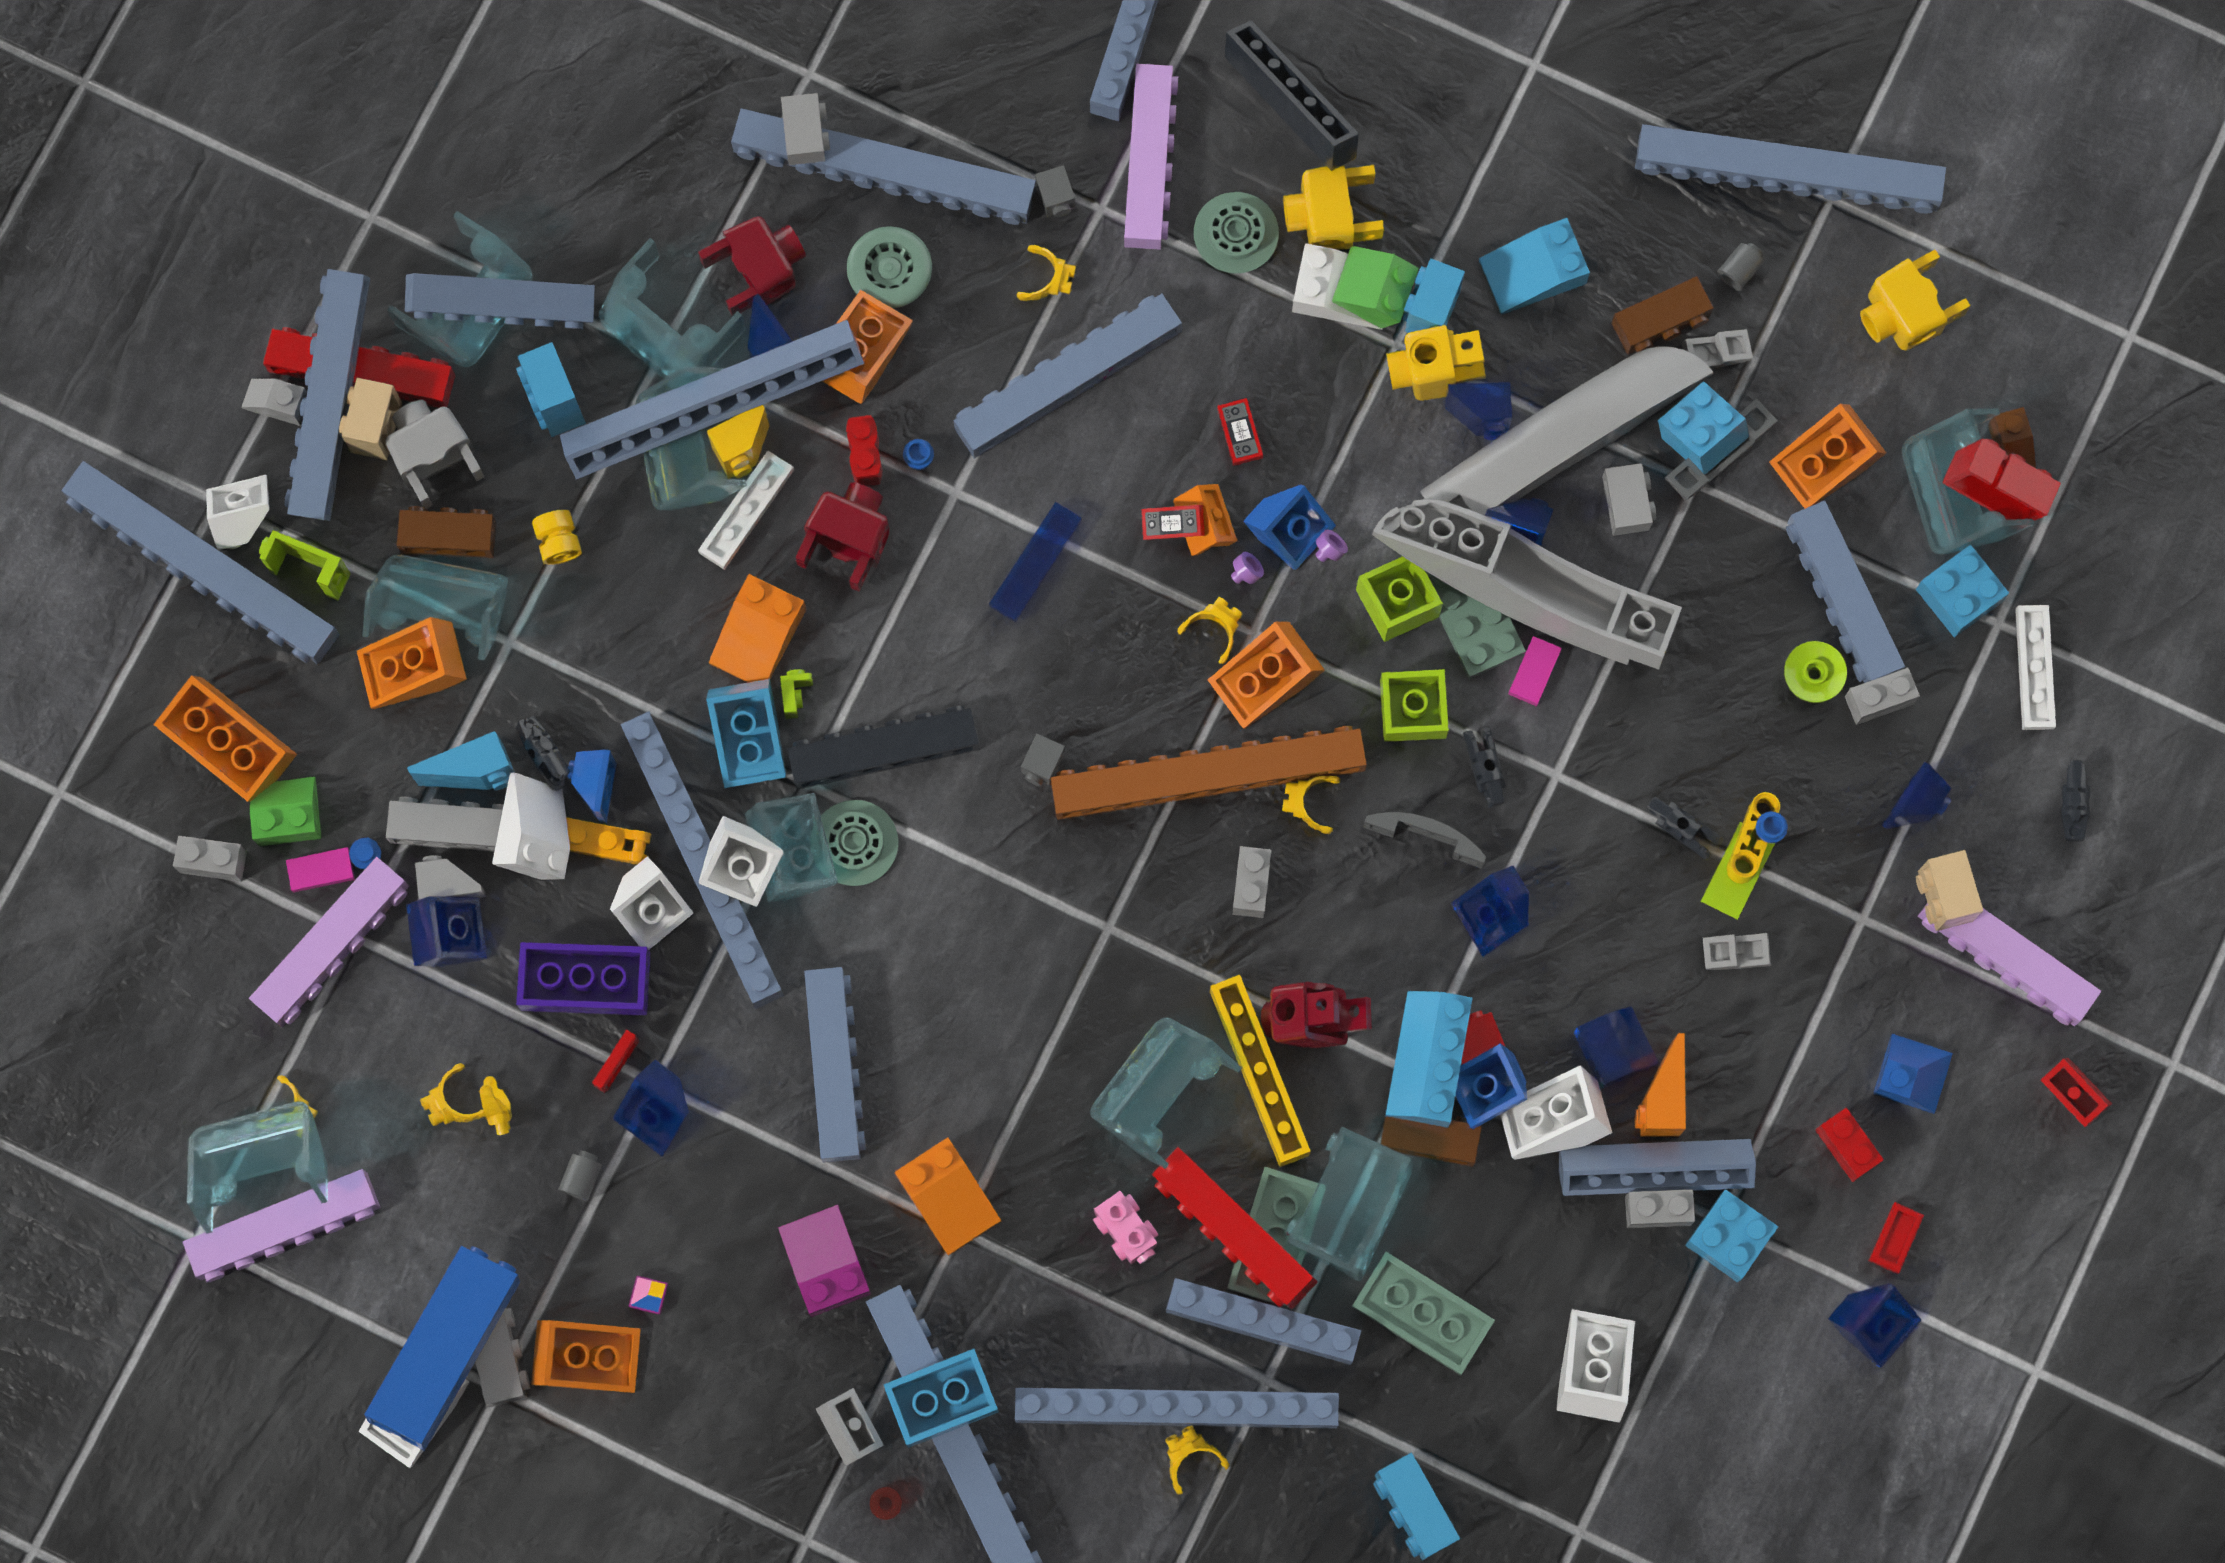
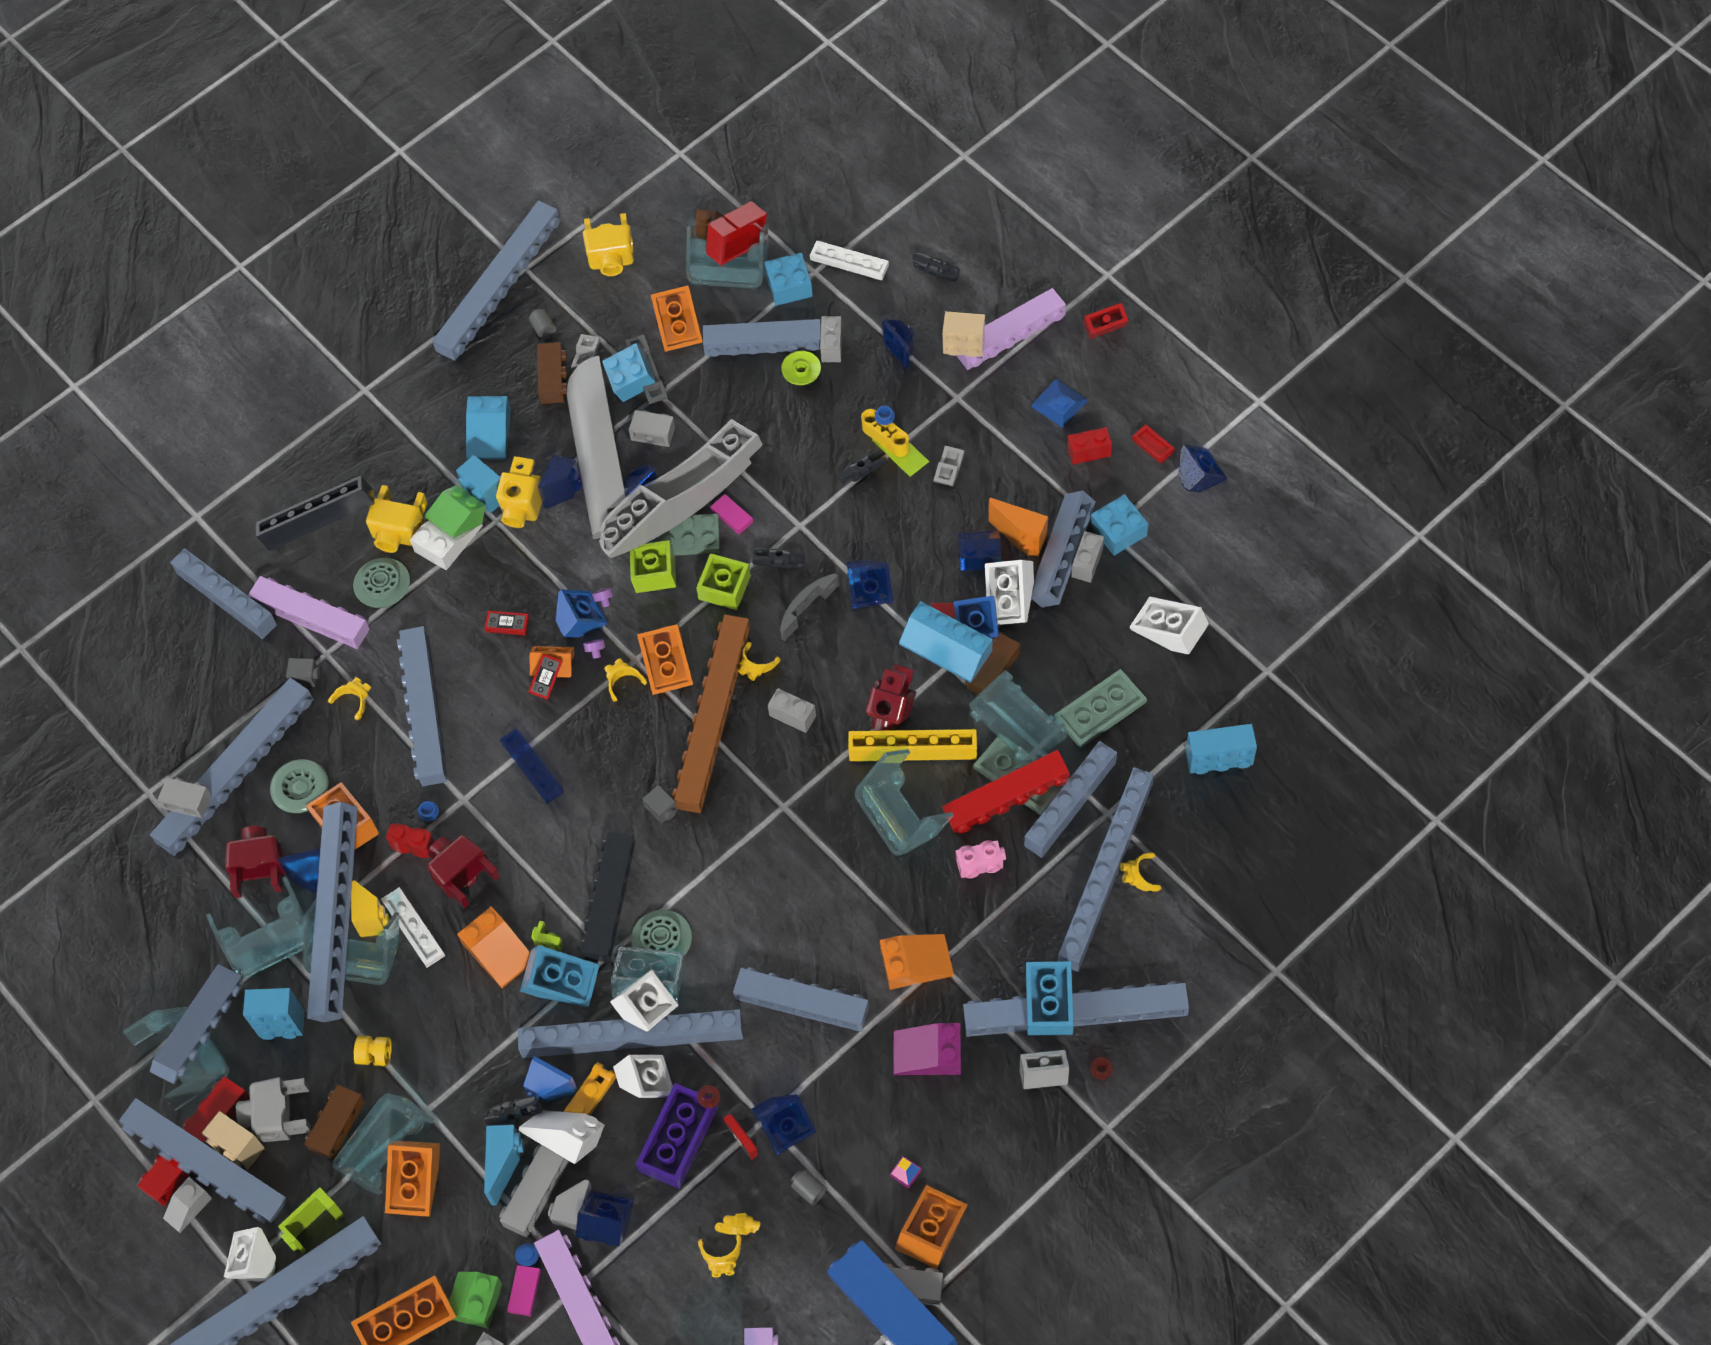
camera: 65 degrees left, 15 degrees down
(647, 1006) = (708, 1103): none -> clear red plate

